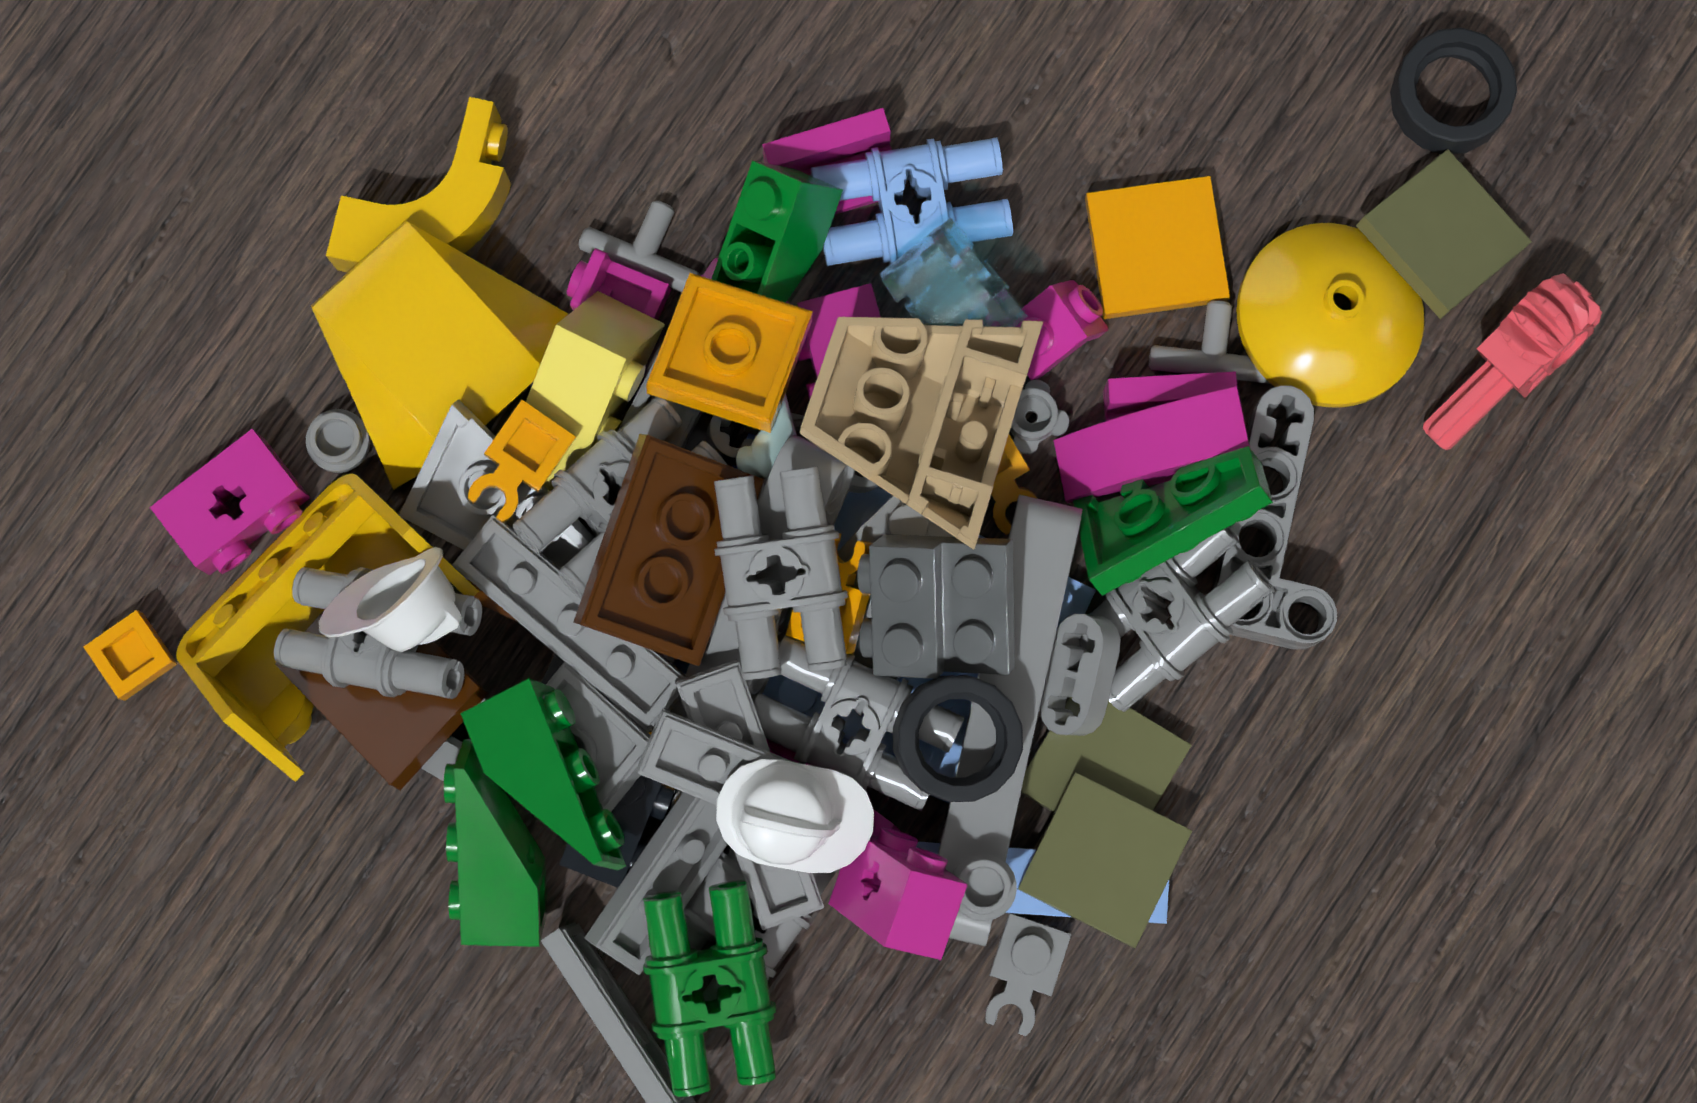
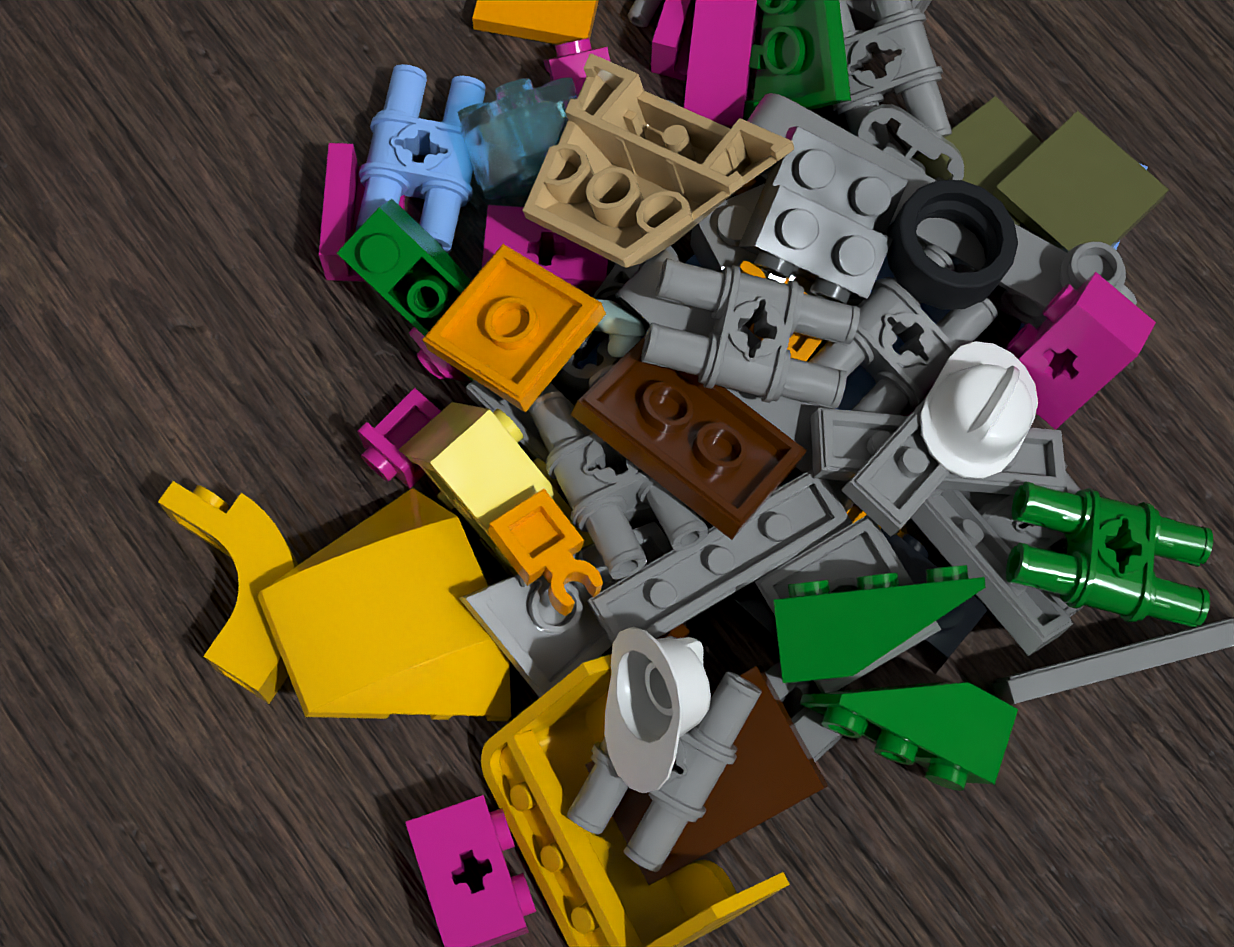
camera: 75 degrees left, 10 degrees down
(337, 441) = (443, 753): light grey plate -> none
(642, 253) = (367, 407): light grey piece -> none
(1028, 962) = (1158, 297): light grey plate -> none

